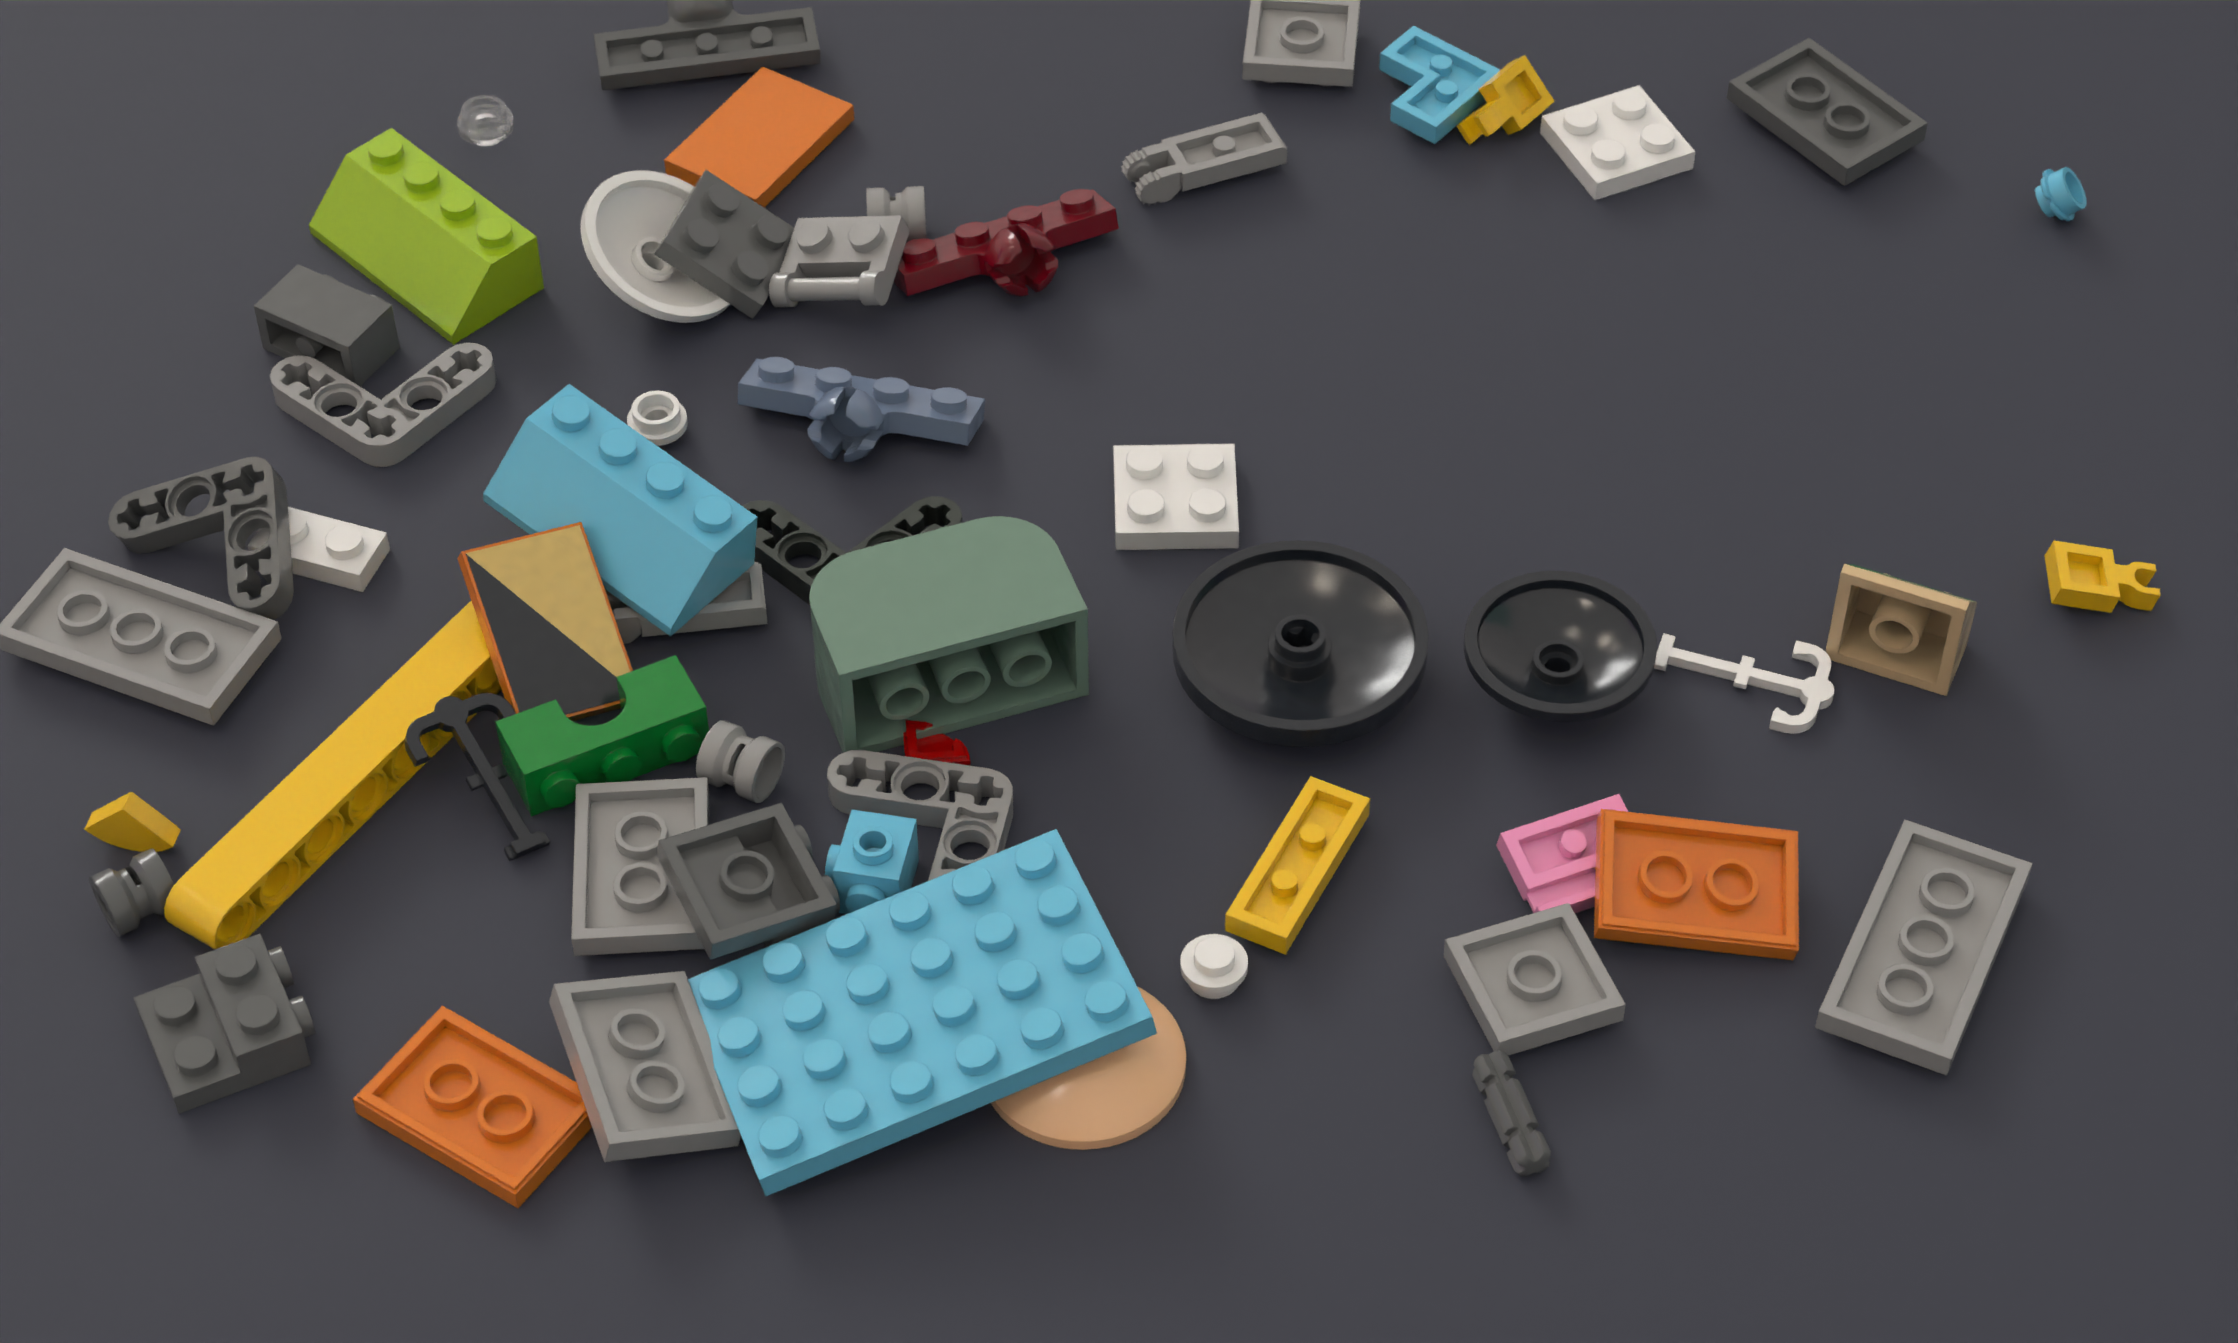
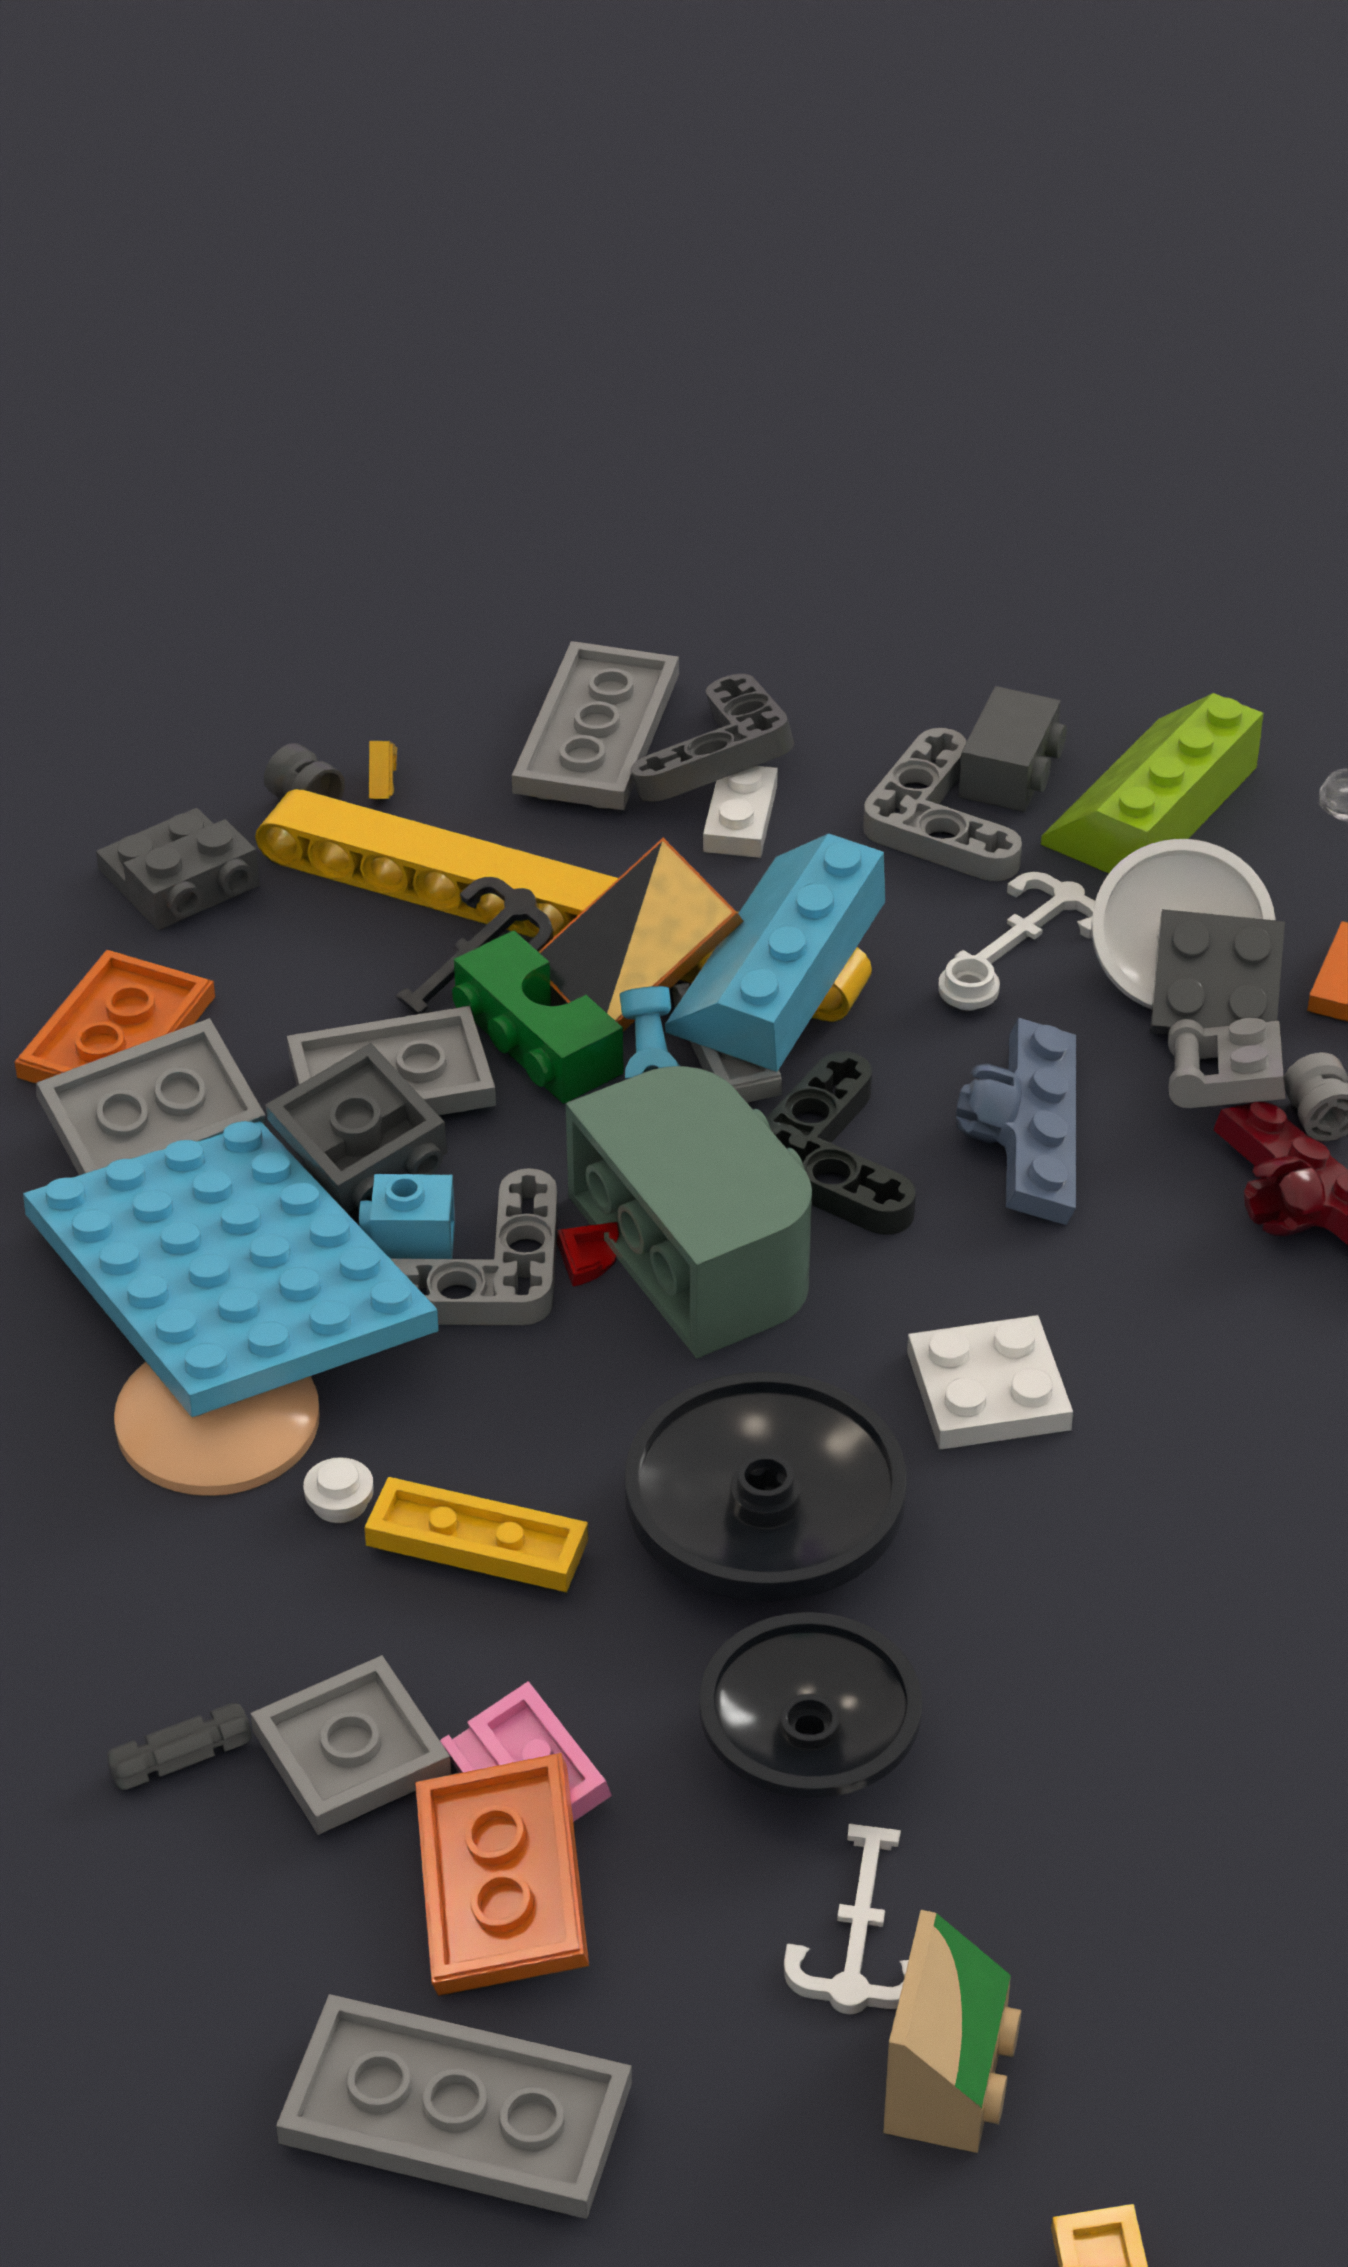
camera: 80 degrees right, 5 degrees down
(545, 337) = (1065, 897): none -> white piece
(726, 653) = (645, 1007): none -> medium azure leg
(740, 761) = (525, 1109): light grey wheel -> none

